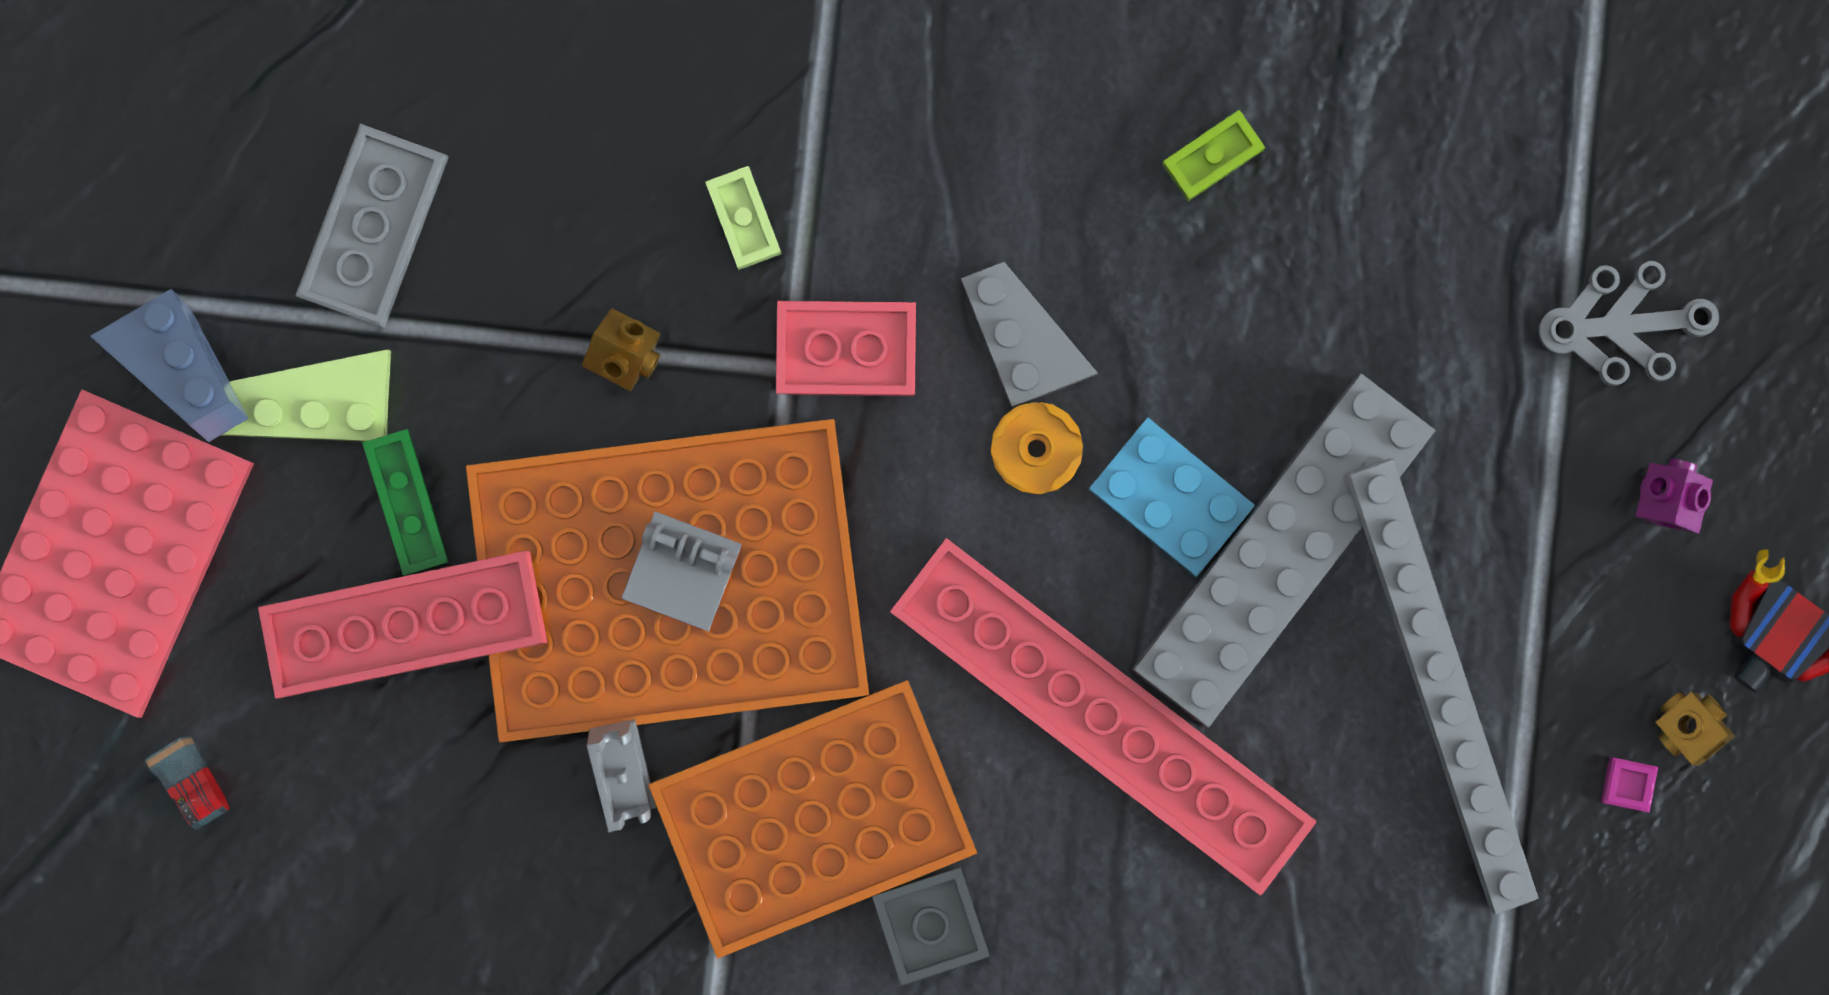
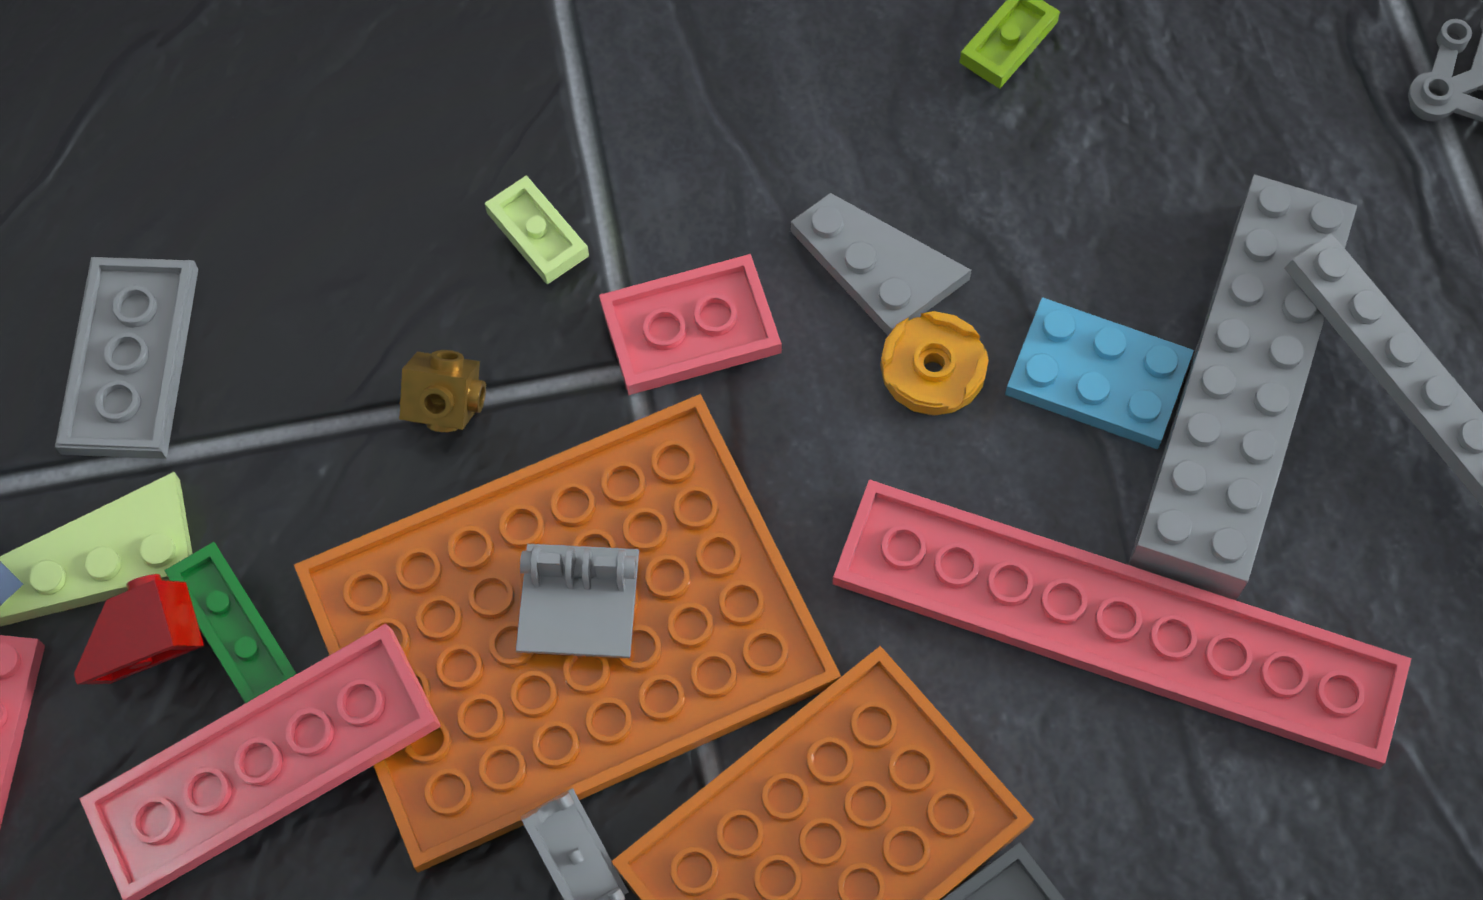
camera: 15 degrees left, 20 degrees down
(334, 490) = (140, 631): none -> red slope

